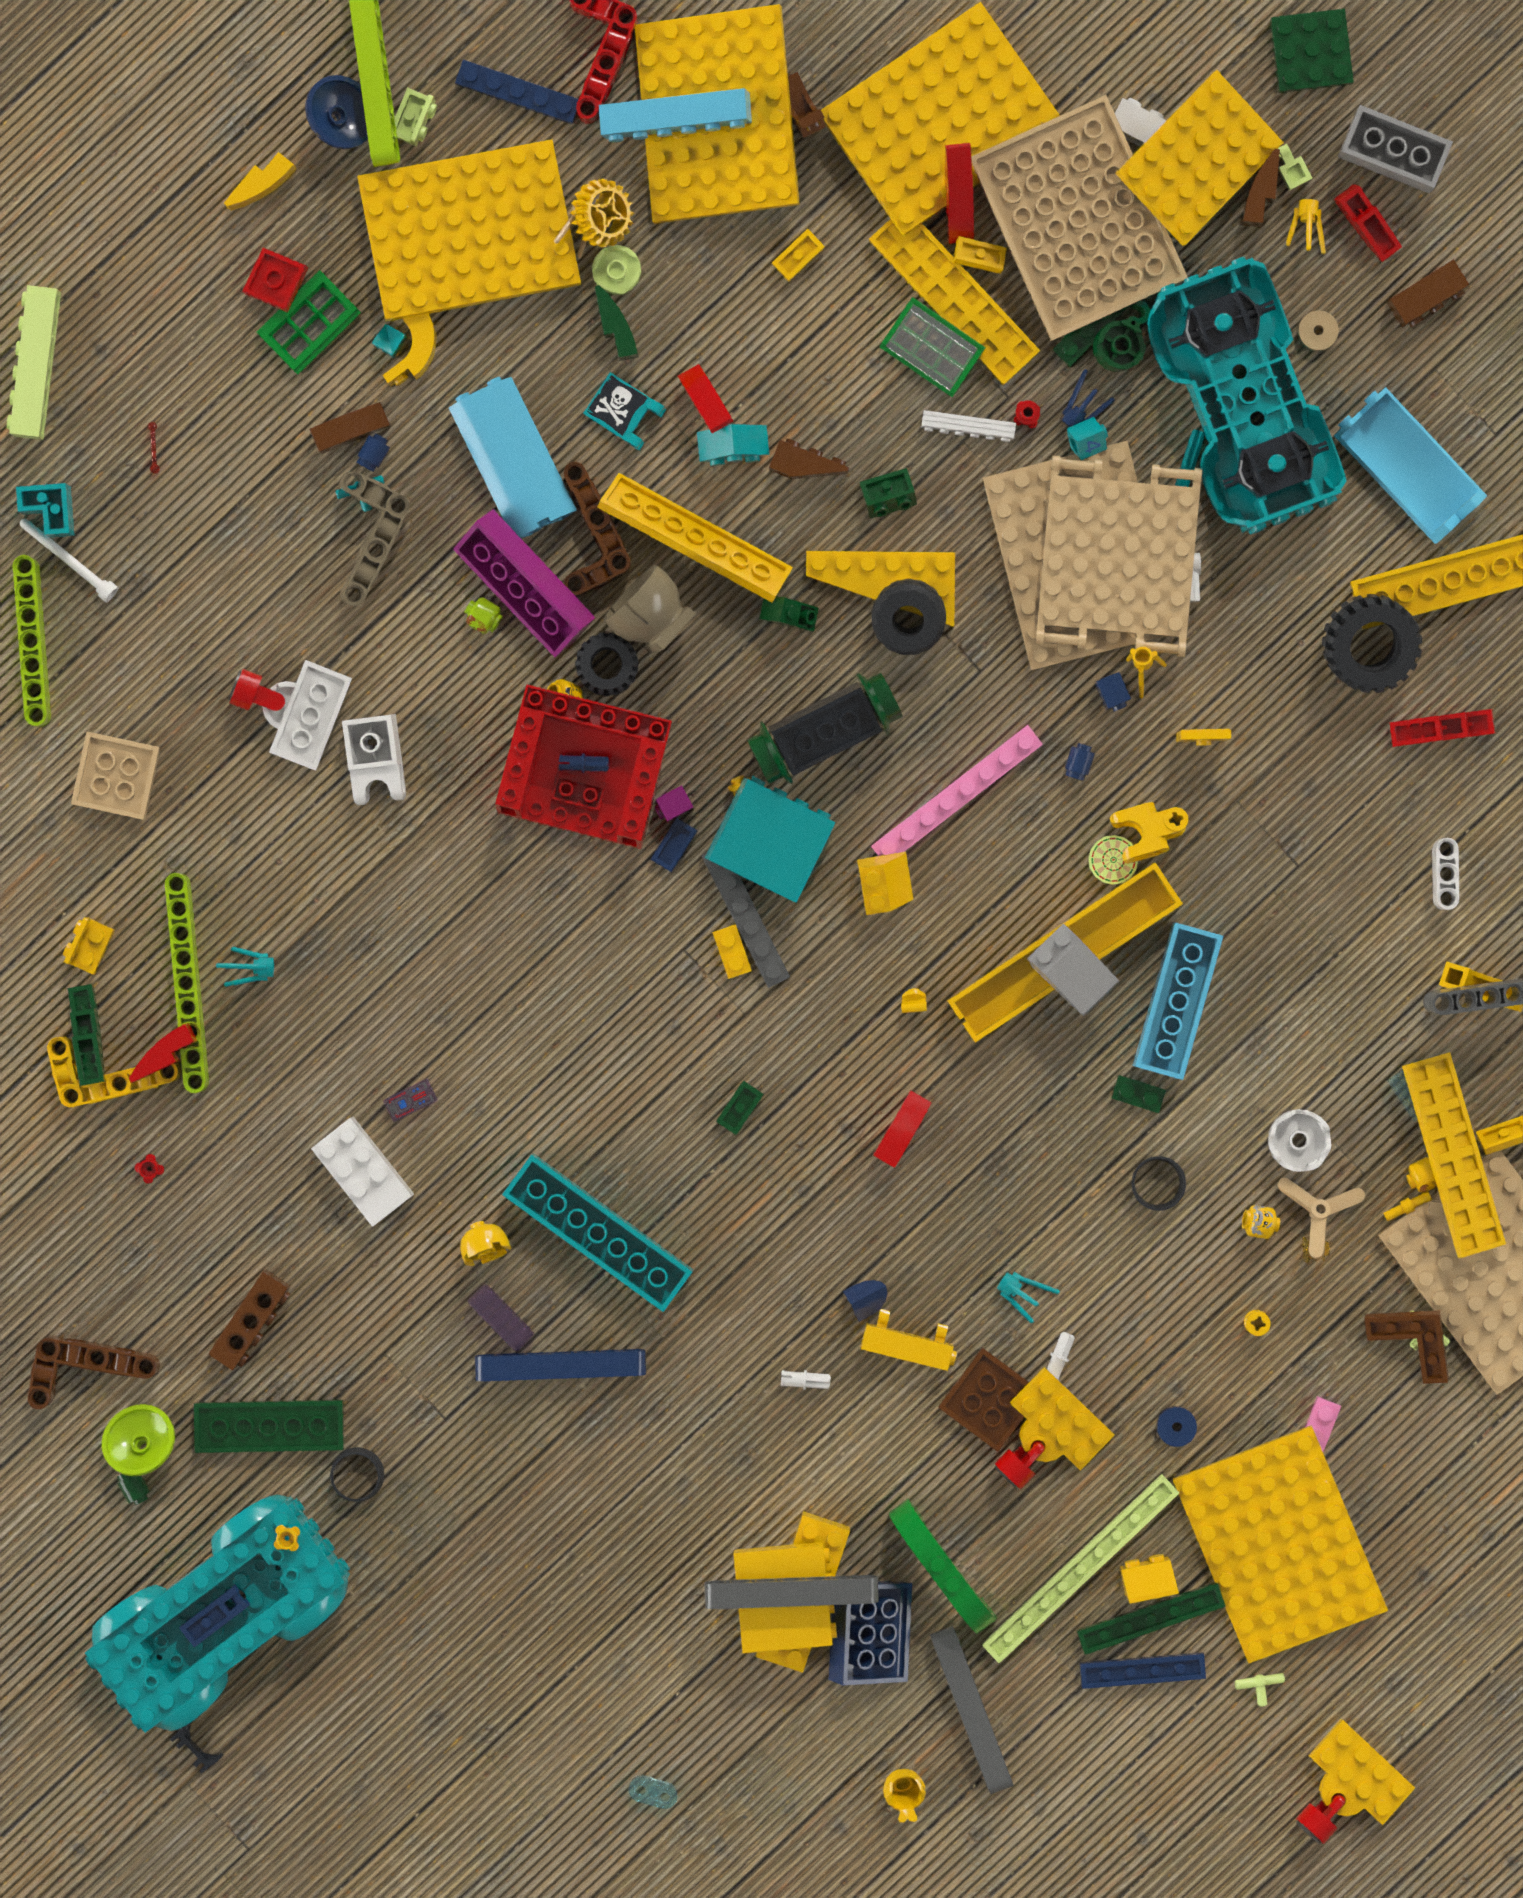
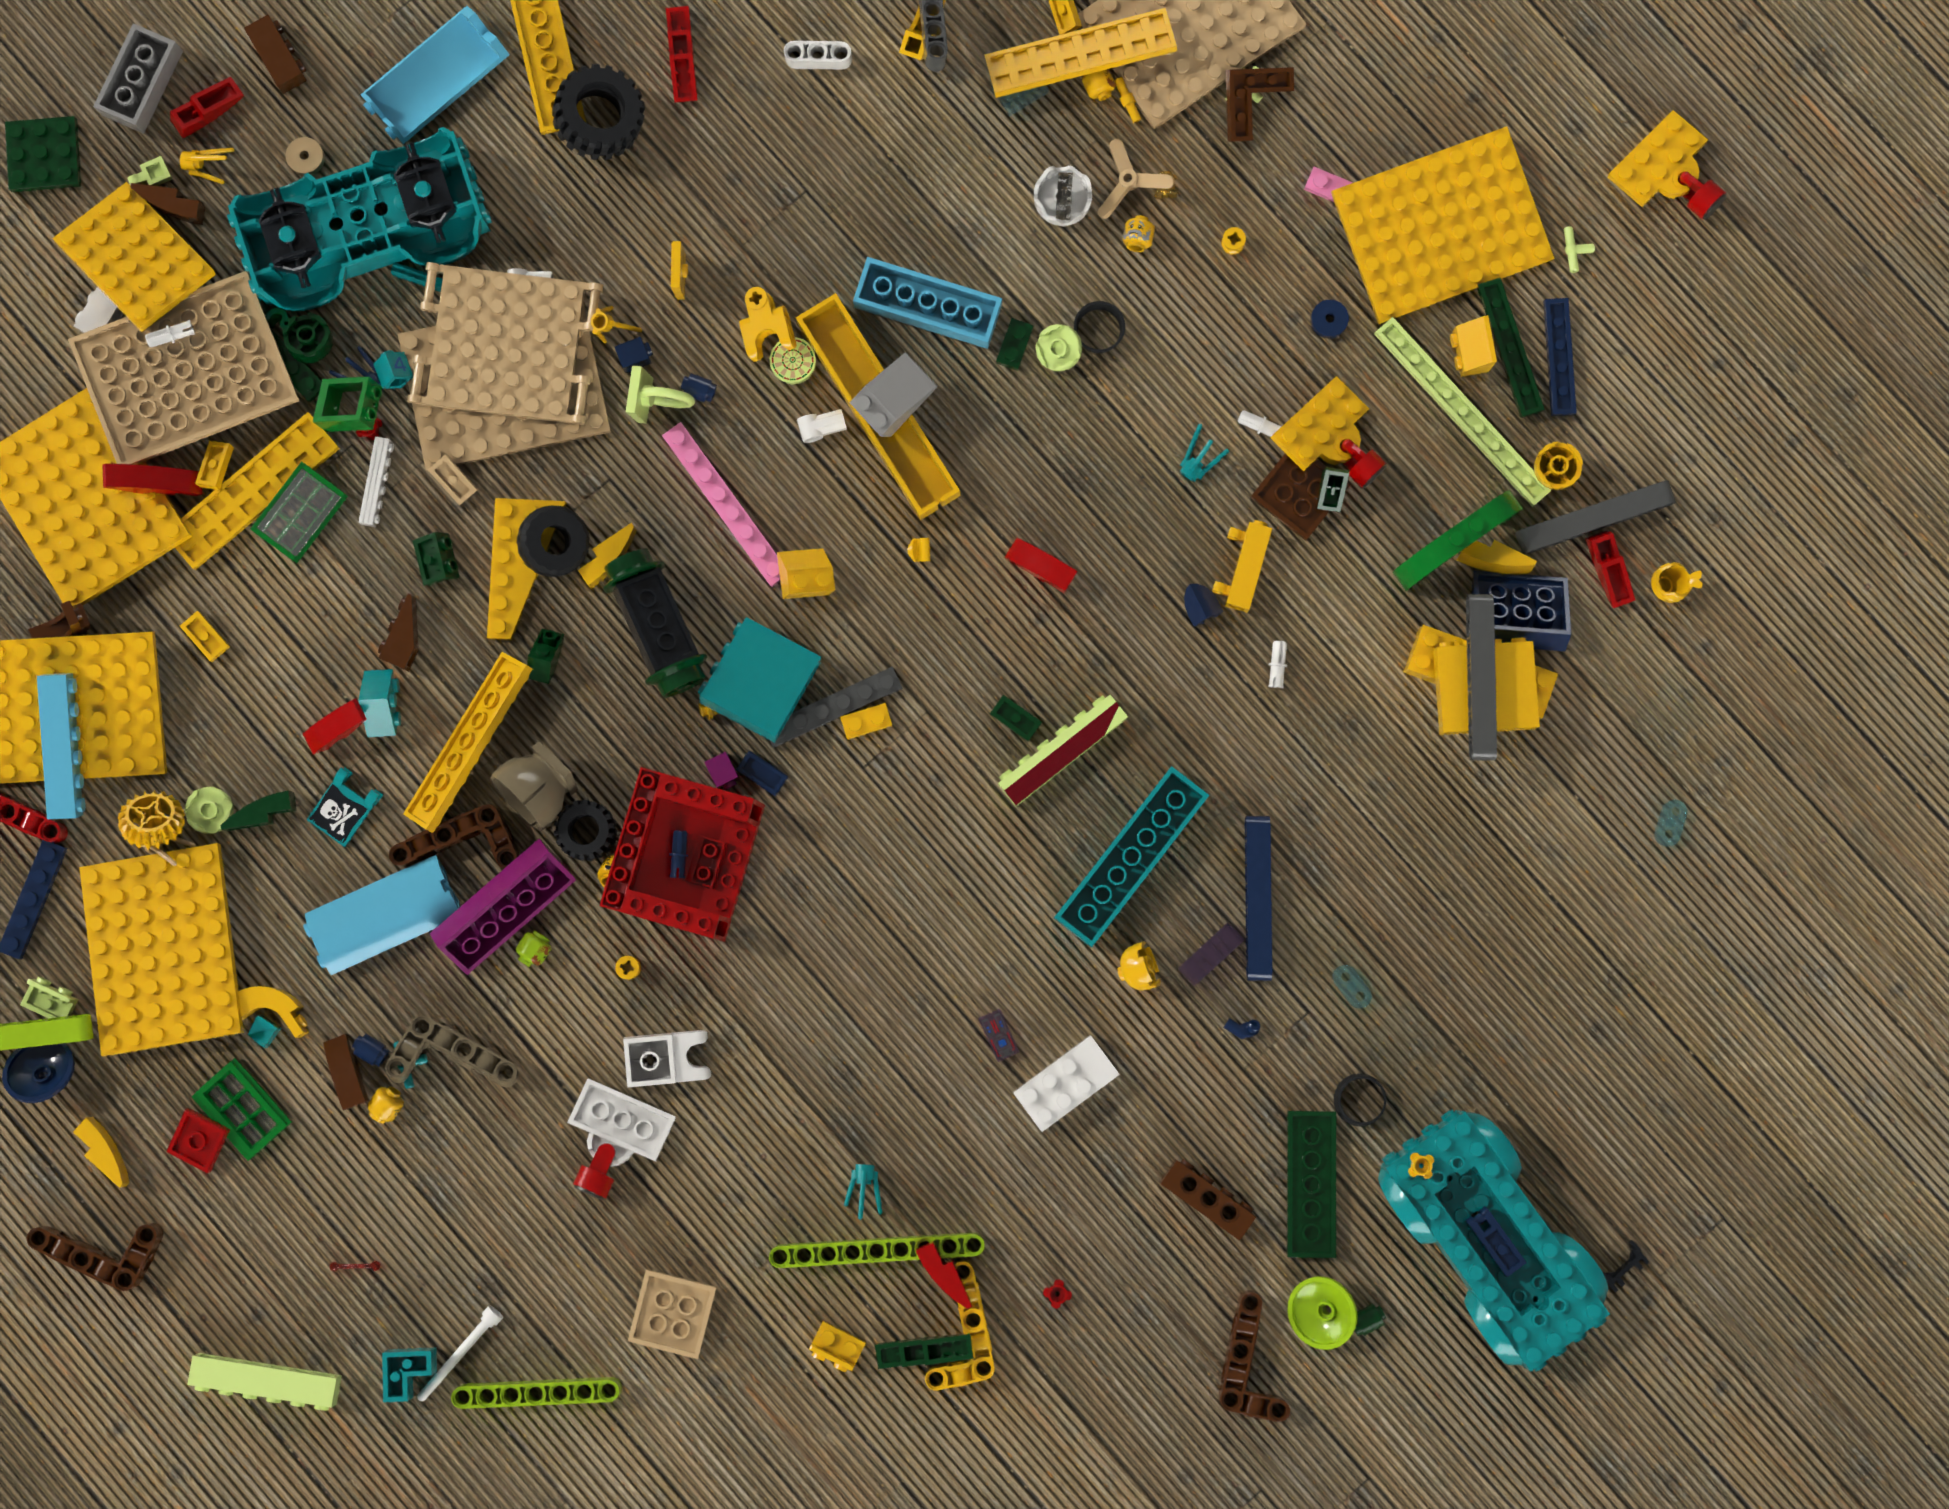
camera: 90 degrees left, 5 degrees down
(144, 187) = (100, 1266): none -> reddish brown beam
(317, 471) = (385, 1104): none -> yellow head
(423, 1352) = (1243, 1030): none -> dark blue arm
(470, 719) = (632, 968): none -> yellow wheel
(472, 1463) = (1352, 986): none -> clear light blue plate
(707, 1158) = (1062, 750): none -> brick
(896, 674) = (606, 552): none -> yellow slope
(918, 1726) = (1610, 568): none -> red slope
(923, 1608) = (1496, 558): none -> yellow slope
(972, 507) = (452, 479): none -> tan plate
(989, 1433) = (1332, 489): none -> dark green slope
(1023, 1670) = (1558, 465): none -> yellow cylinder
(1042, 888) = (815, 426): none -> white piece
(1053, 373) = (329, 401): none -> green window
(1067, 705) = (643, 395): none -> yellowish green tile
(1114, 202) = (169, 334): none -> white axle
(1135, 1141) = (1059, 347): none -> yellowish green tile
(1295, 1142) = (1064, 195): none -> clear smoke plate

